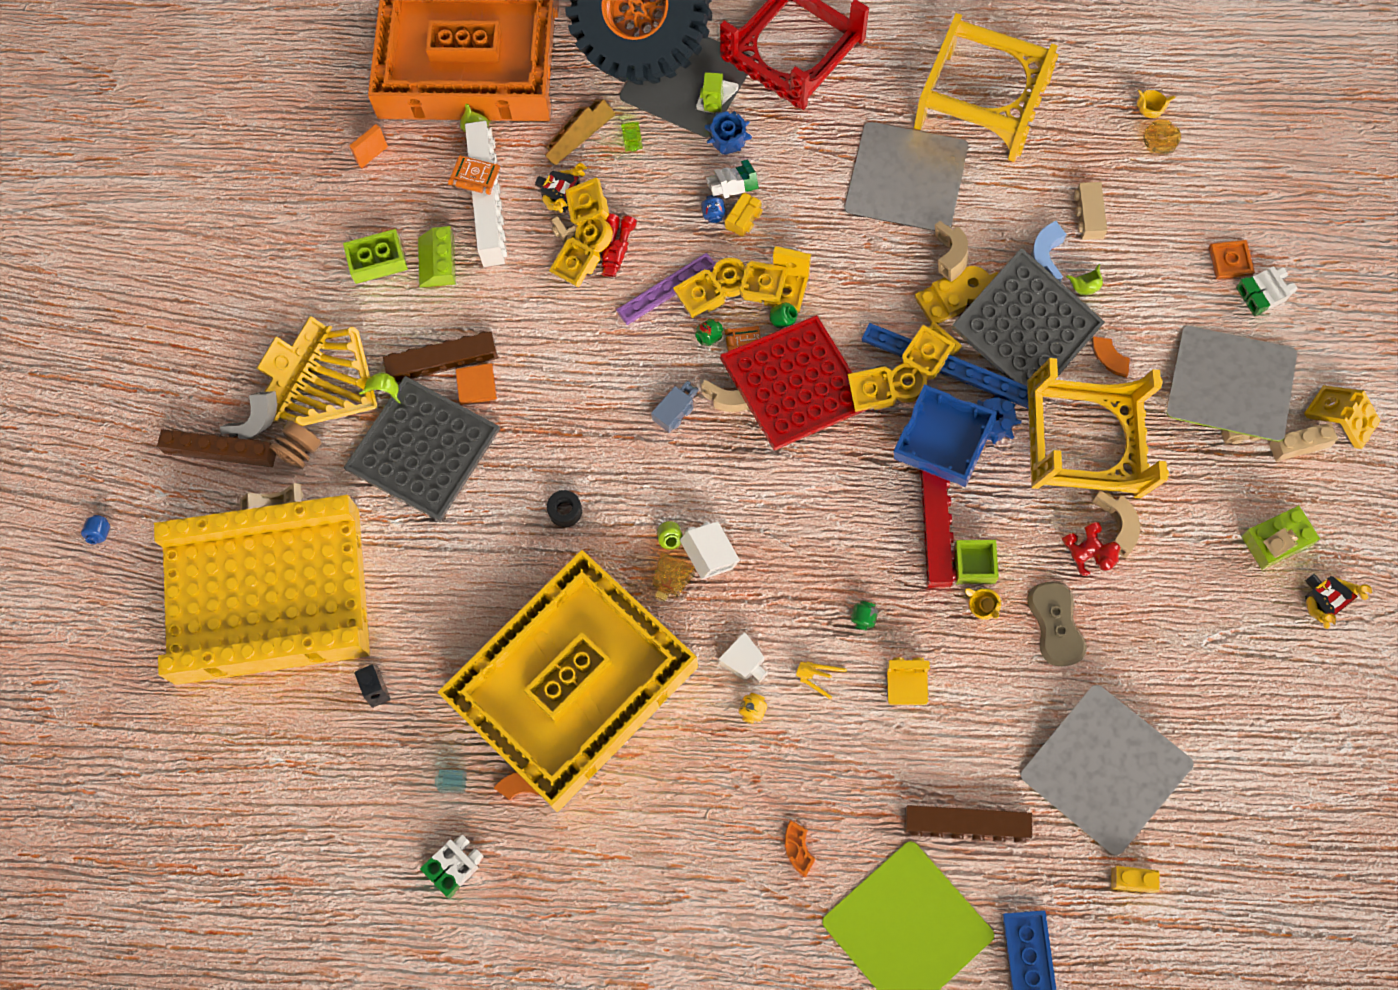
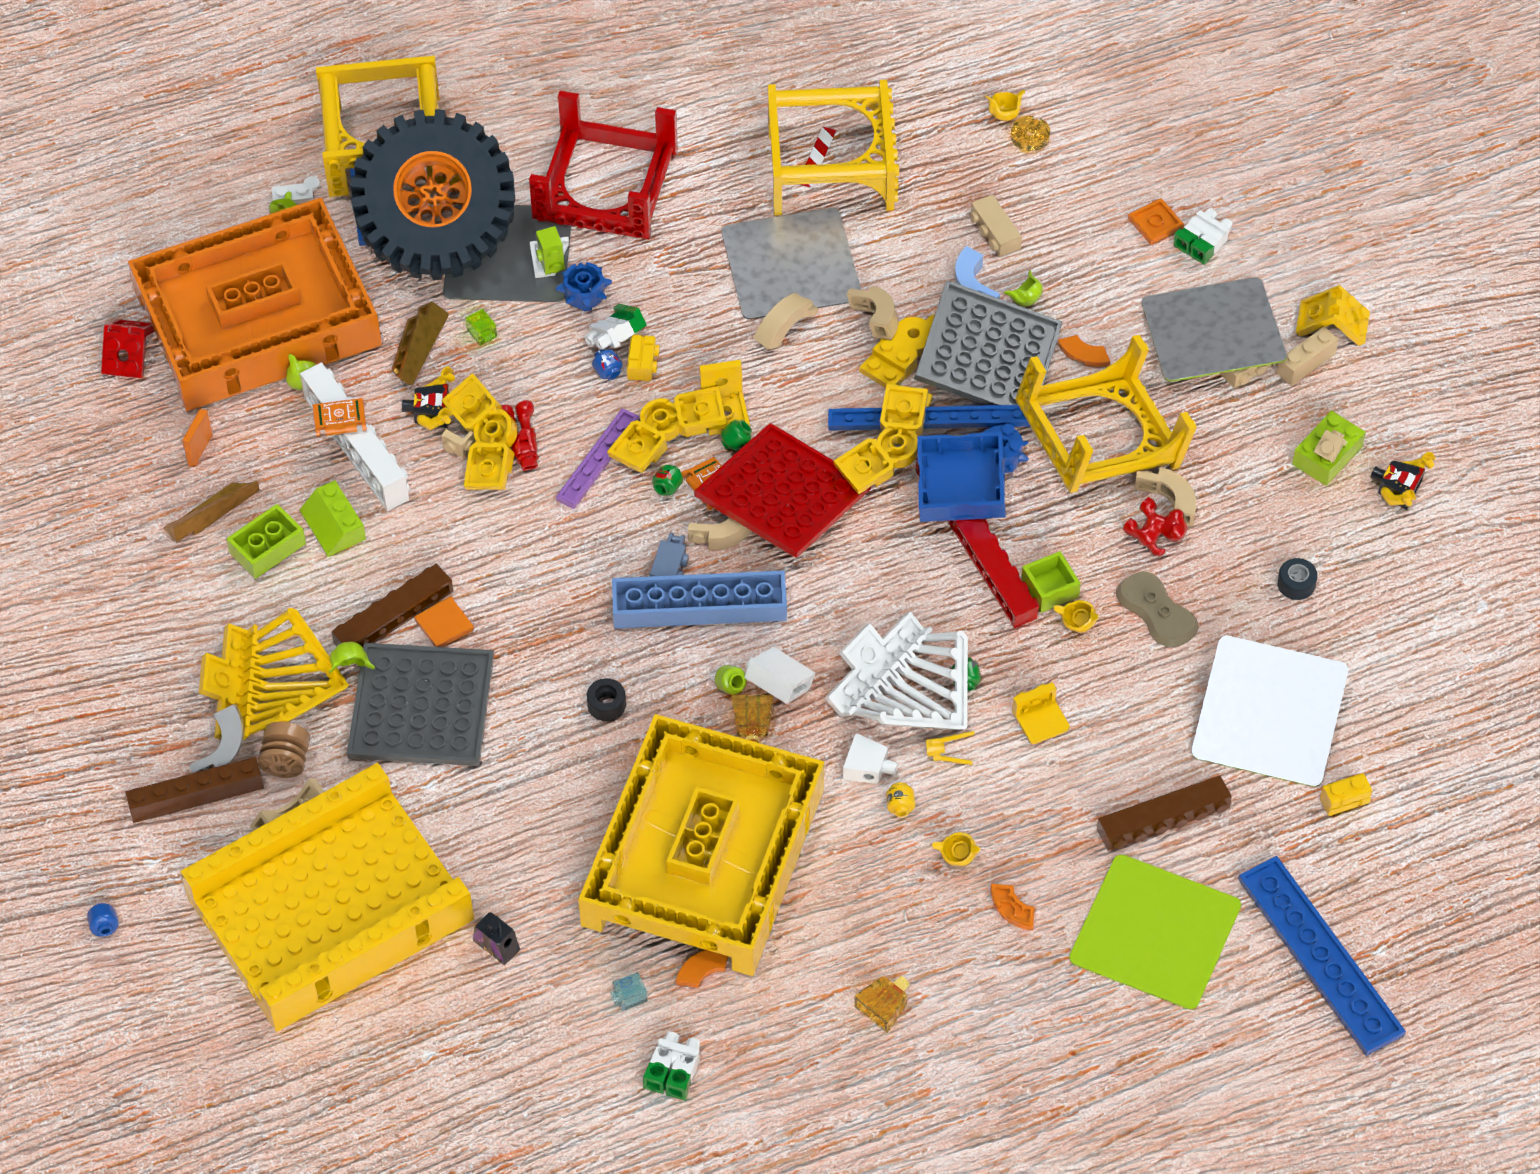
camera: 30 degrees left, 15 degrees down
(351, 211) = (211, 509): none -> pearl gold wedge
(358, 37) = (128, 336): none -> red bracket
(648, 889) = (883, 1001): none -> clear yellow torso
(680, 452) = (699, 599): none -> medium blue brick
(776, 777) = (957, 849): none -> yellow hair
(795, 570) = (878, 661): none -> white plate
(872, 225) = (781, 319): none -> tan arch
(979, 84) = (820, 148): none -> sticker
(1198, 646) = (1297, 579): none -> black wheel

